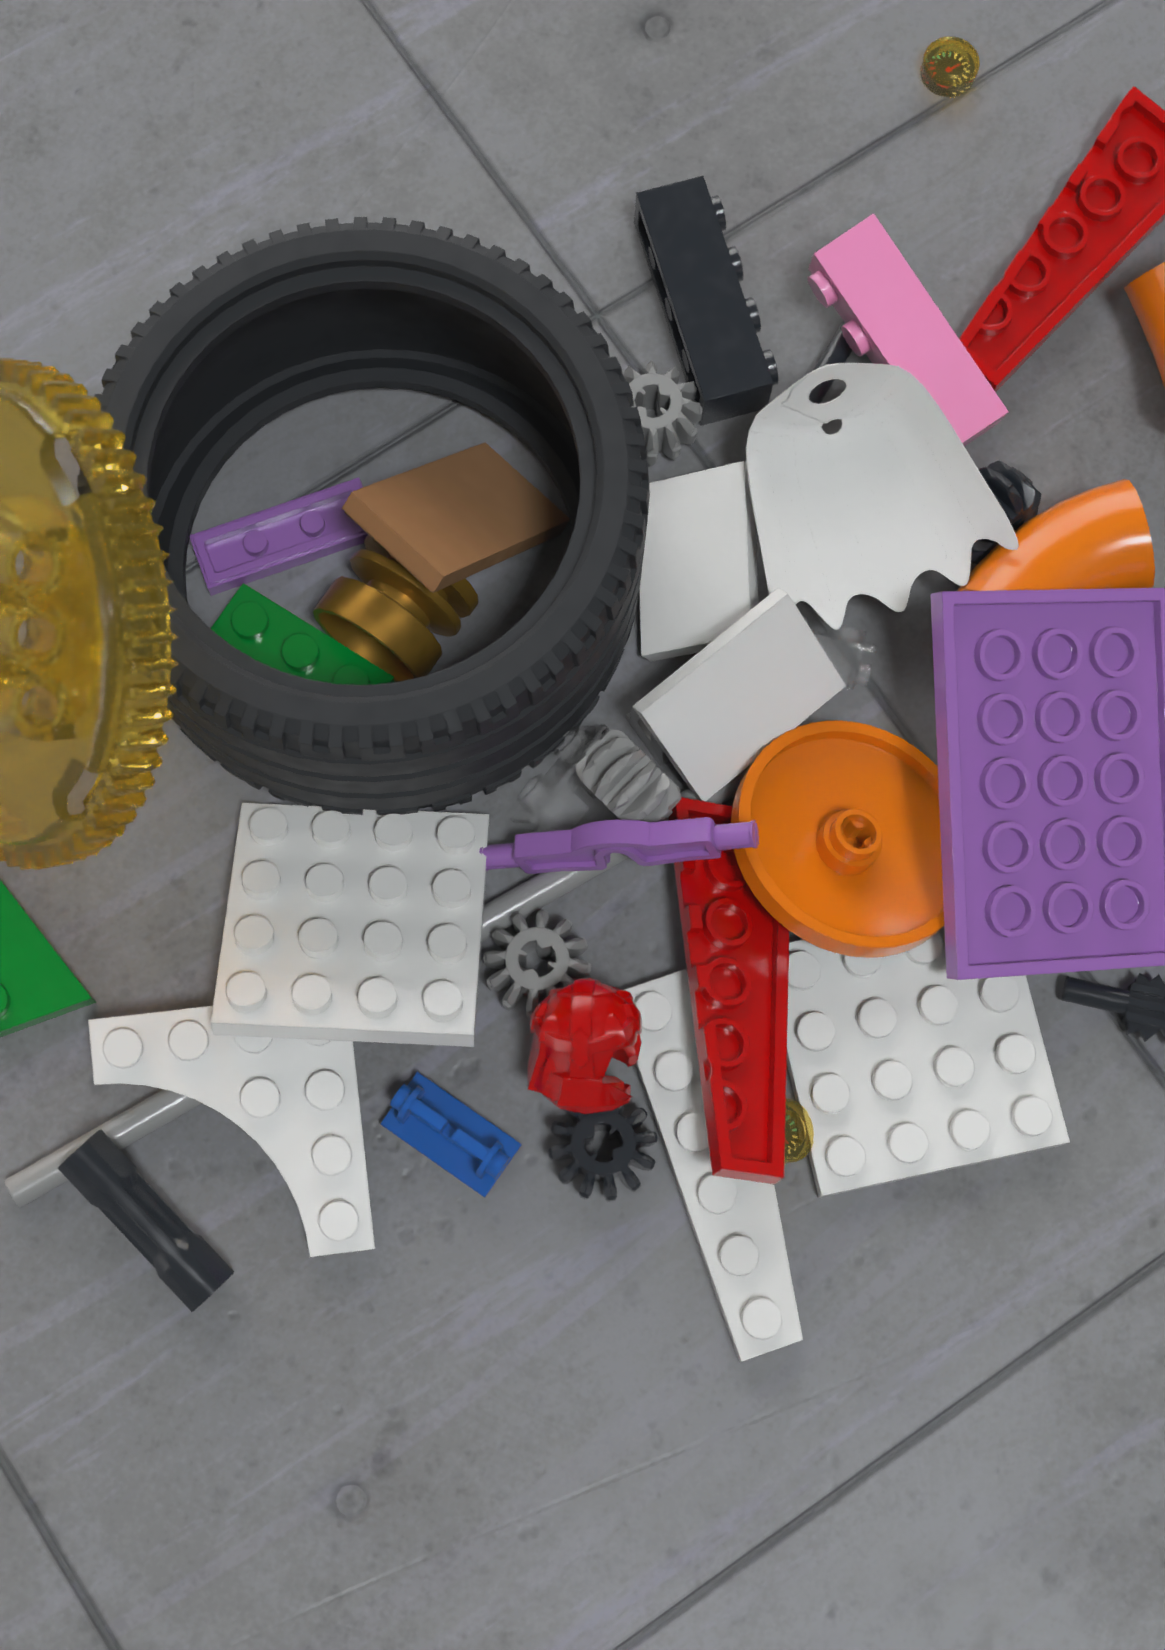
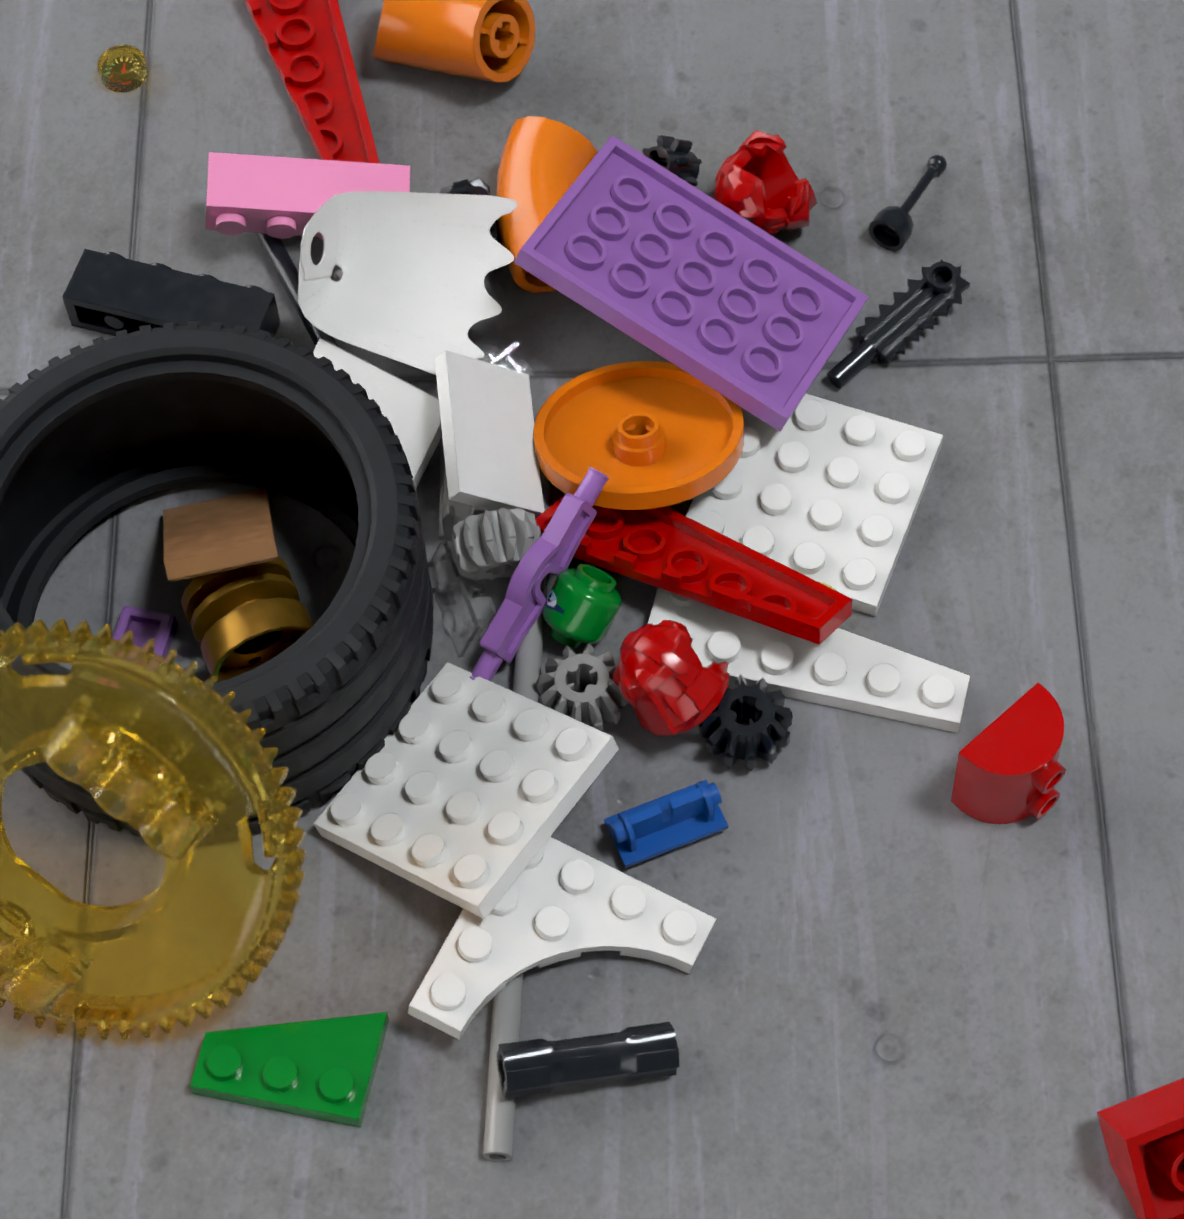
camera: 50 degrees left, 15 degrees down
(625, 905) = (581, 606): none -> green head
(719, 1456) = (1013, 762): none -> red brick

